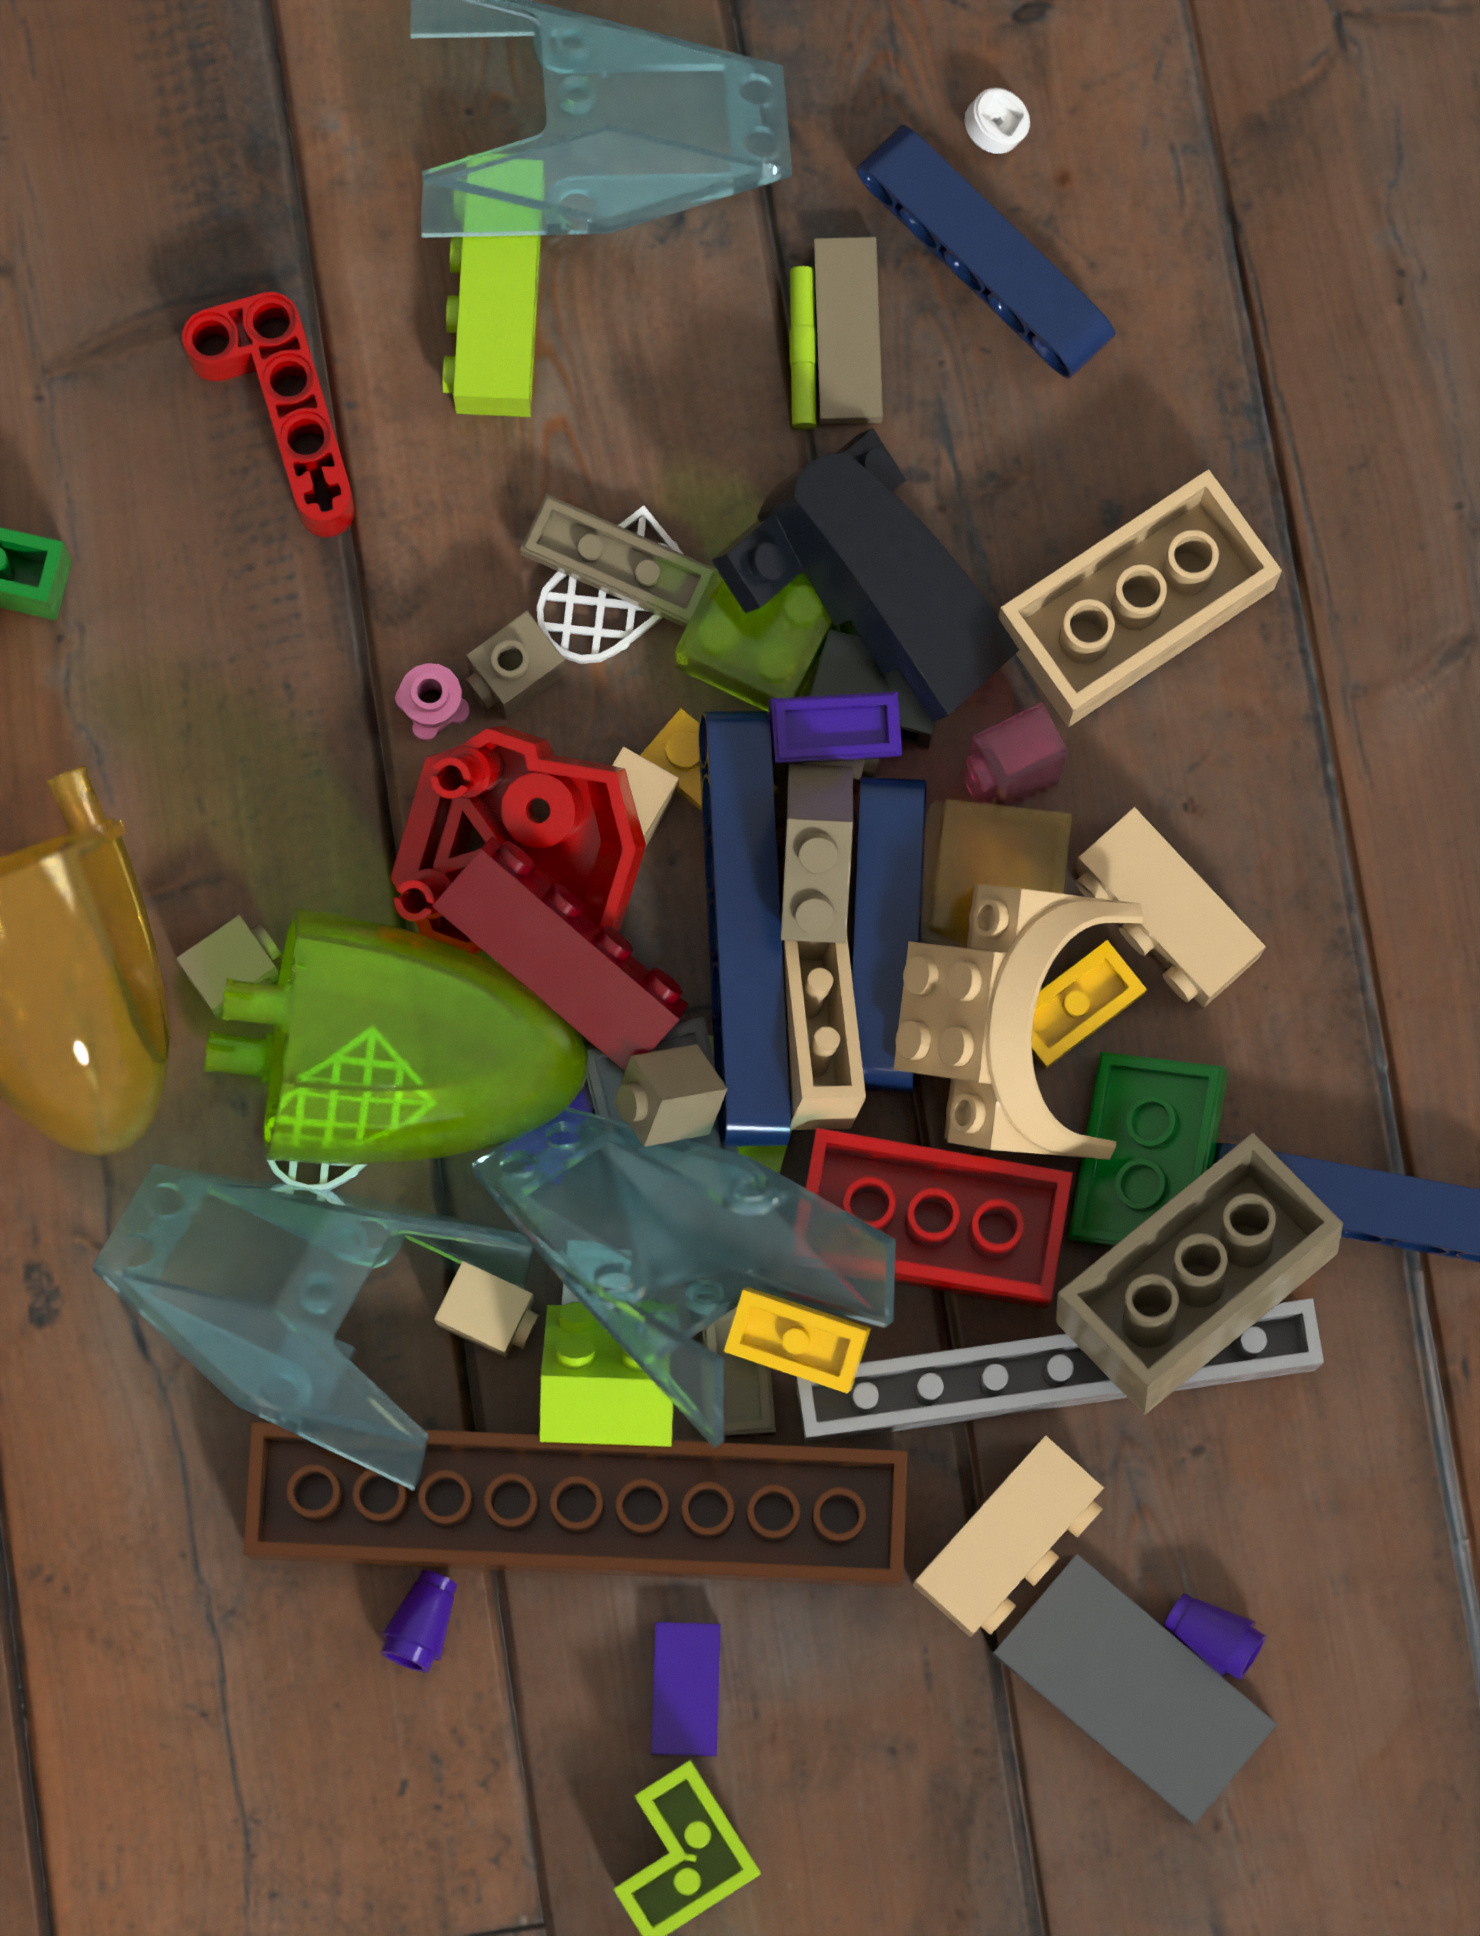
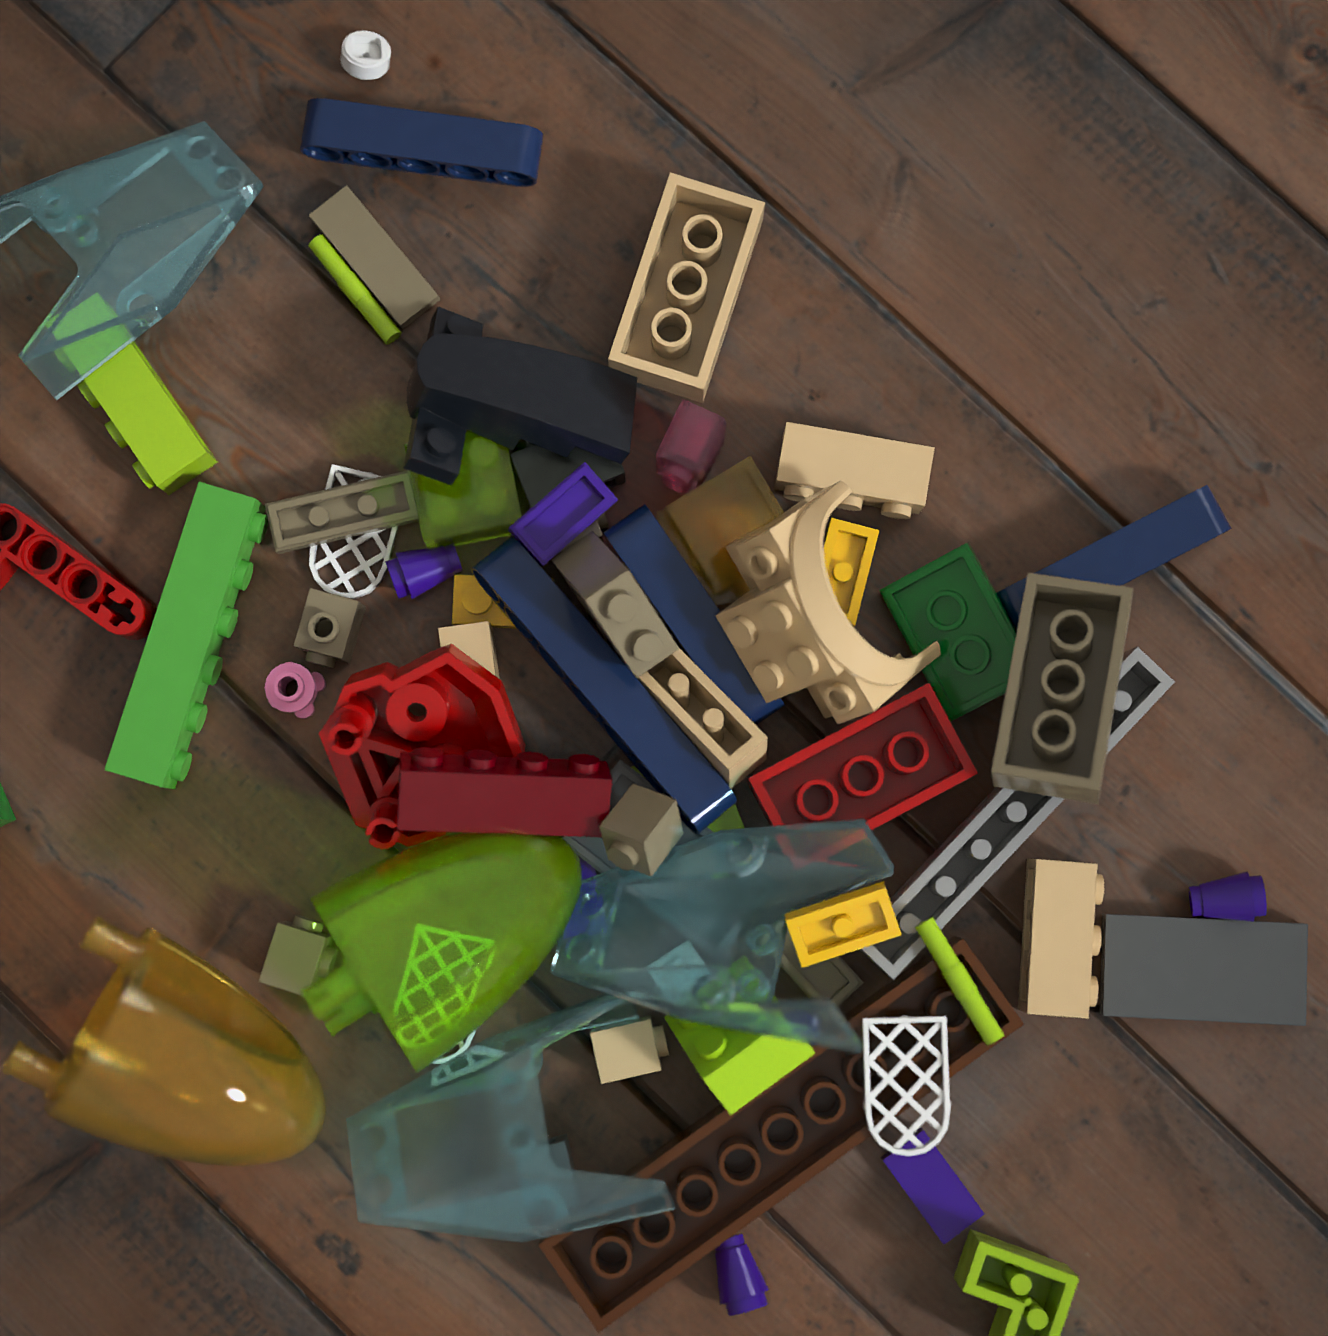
camera: 35 degrees left, 5 degrees up
(367, 568) = (187, 637): none -> bright green brick
(653, 678) = (422, 569): none -> dark purple cone
(691, 1532) = (869, 1096): none -> white window
(870, 1486) = (959, 981): none -> lime piece

